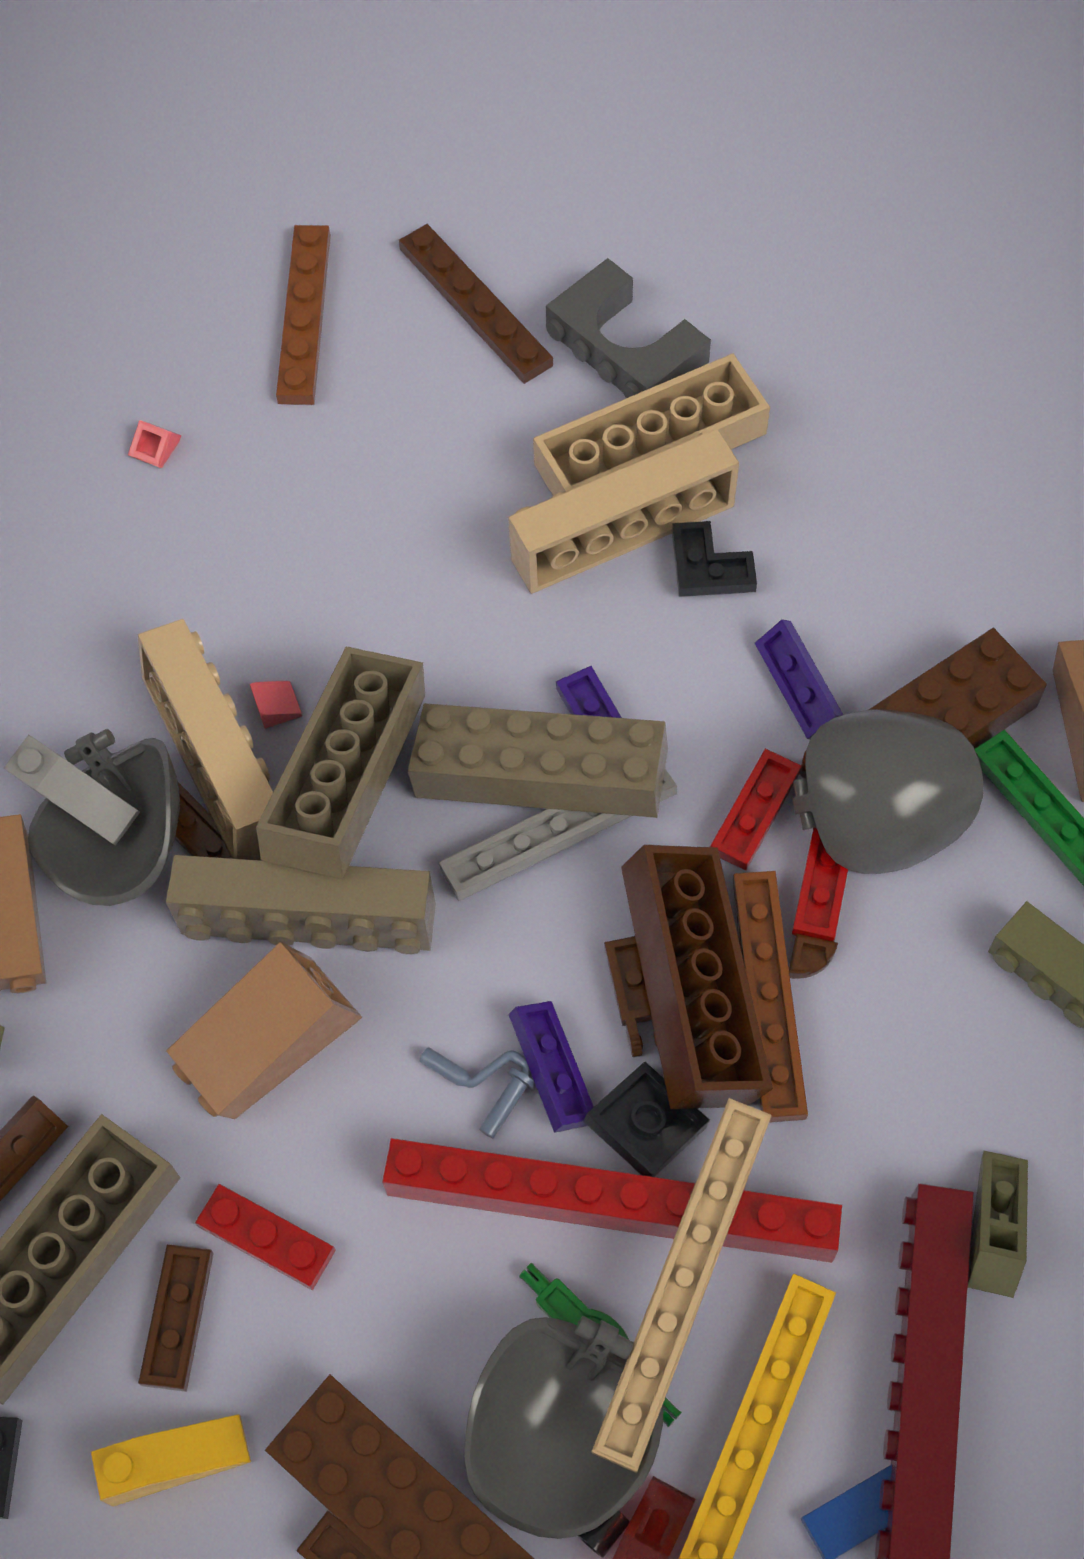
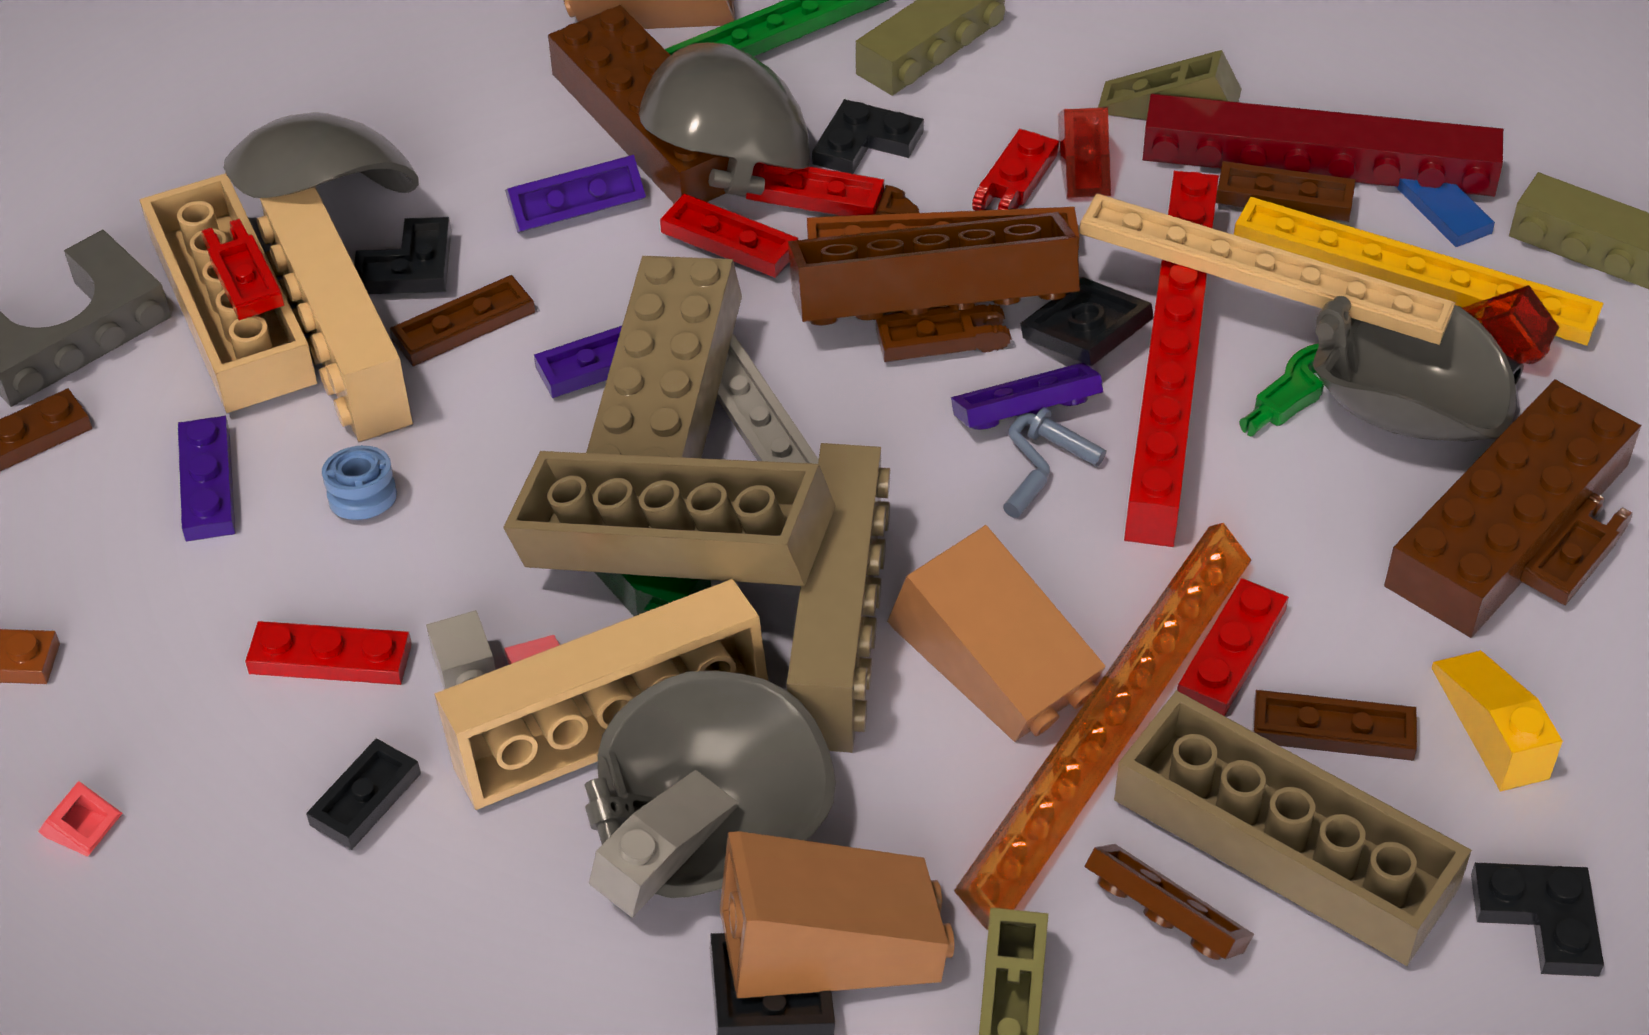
camera: 90 degrees left, 15 degrees down
(153, 602) = (363, 793): none -> black plate
(191, 1128) = (1103, 726): none -> clear orange plate
(270, 651) = (460, 649): none -> light grey brick
(291, 568) = (329, 652): none -> red plate
(446, 546) = (359, 482): none -> medium blue wheel
(466, 462) = (206, 478): none -> dark purple plate
(638, 431) = (243, 272): none -> red hinge
(646, 613) = (462, 320): none -> reddish brown tile
(780, 471) = (313, 150): none -> dark grey piece
(857, 1335) = (1306, 192): none -> reddish brown plate
(870, 1065) = (1016, 171): none -> red hinge
(896, 1128) = (1084, 152): none -> clear red slope
(923, 916) = (862, 127): none -> black plate

